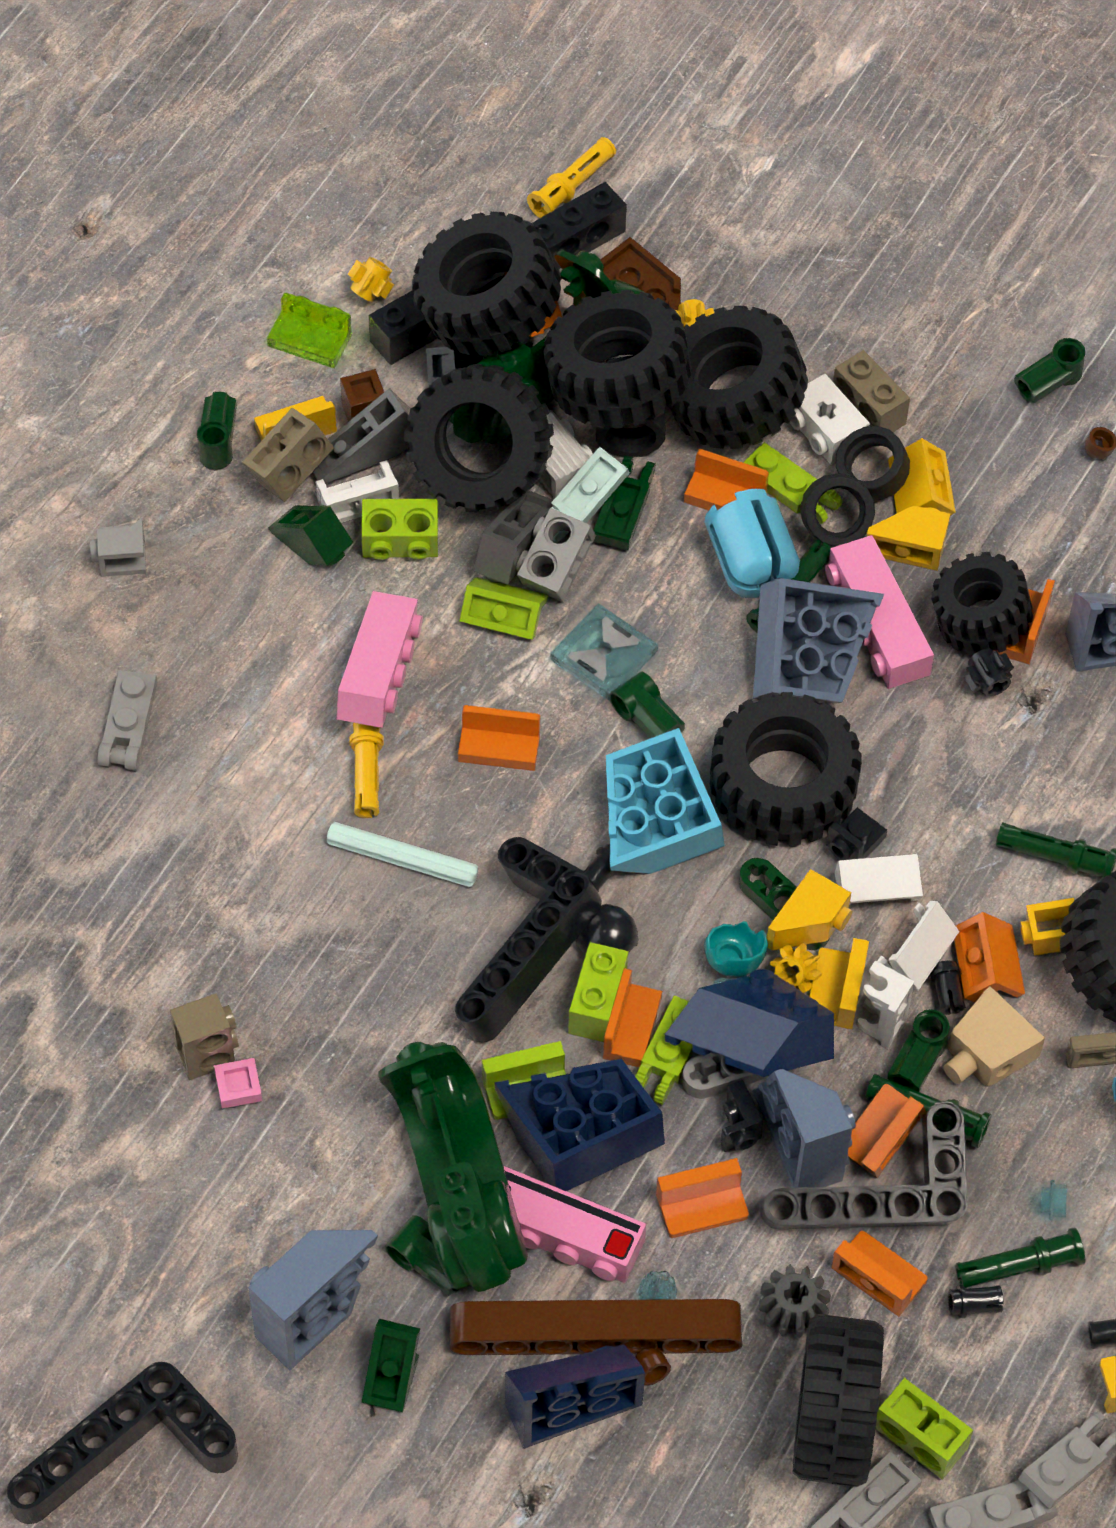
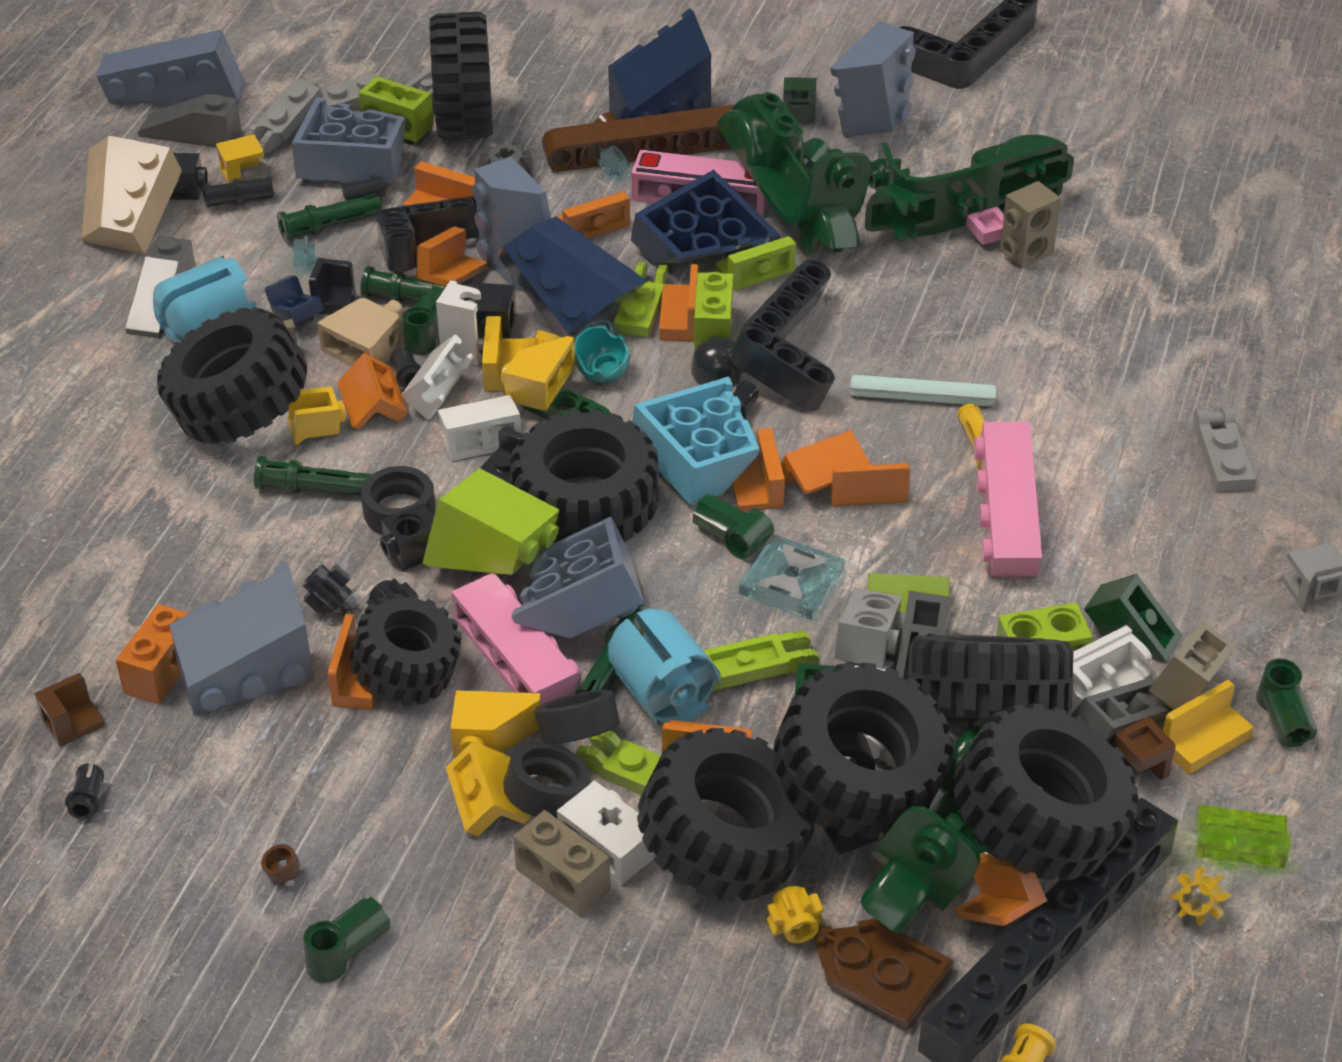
camera: 170 degrees right, 15 degrees down
(195, 1127) = (943, 201): none -> dark green piece
(539, 762) = (814, 463): none -> orange panel
(595, 779) = (763, 480): none -> orange panel
(661, 562) = (761, 657): none -> lime hinge
(849, 1046) = (496, 301): none -> black brick
(890, 704) = (489, 527): none -> lime slope
(958, 764) = (407, 536): none -> black brick
(972, 776) = (390, 482): none -> black tyre
(991, 1370) = (348, 144): none -> sand blue wedge
(1023, 1124) = (333, 283): none -> black panel
(1050, 701) = (326, 588): none -> black gear
(1067, 1103) = (291, 303): none -> dark blue bracket

